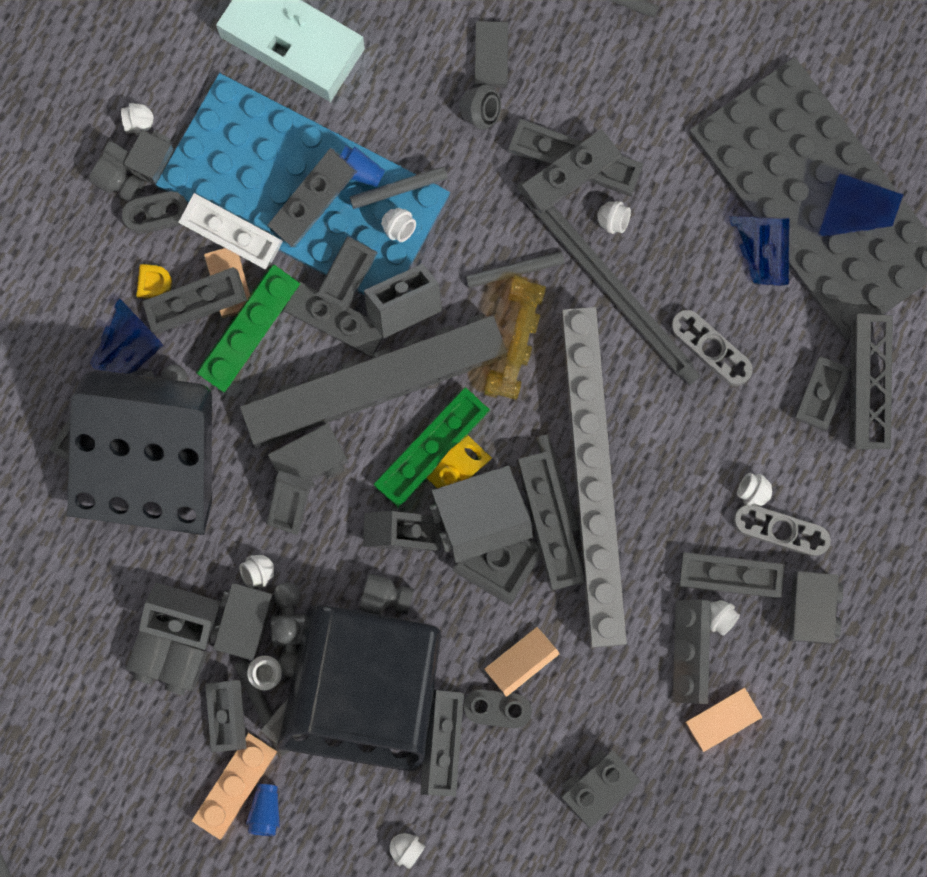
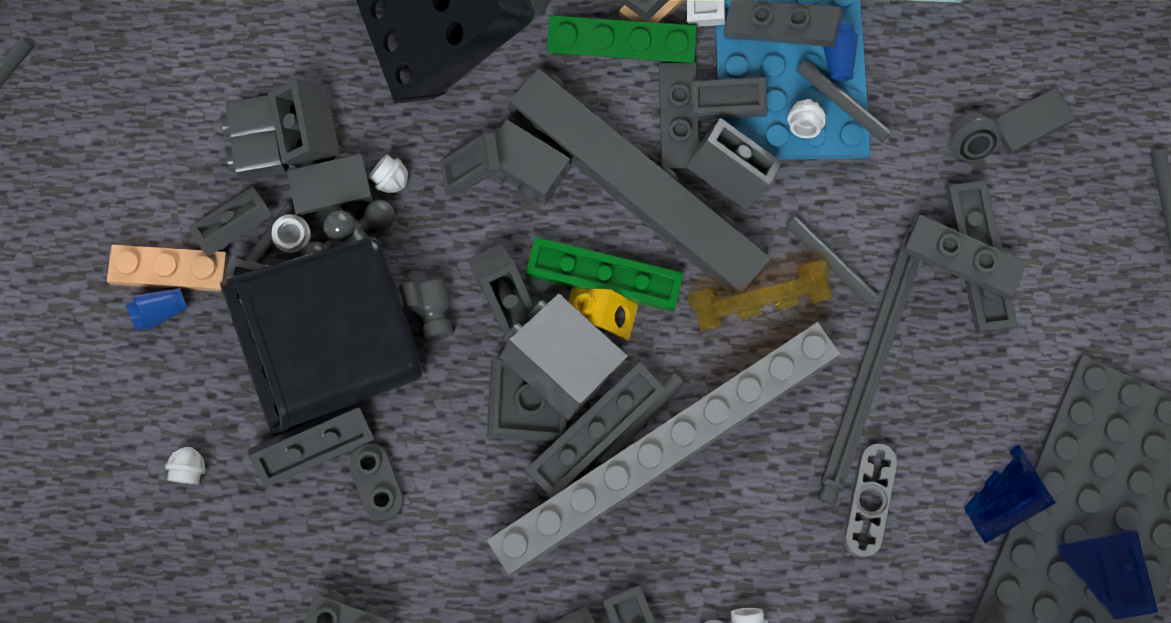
camera: 60 degrees right, 5 degrees down
(521, 661) = (436, 480): light nougat tile -> none
(614, 217) = (945, 327): white plate -> none

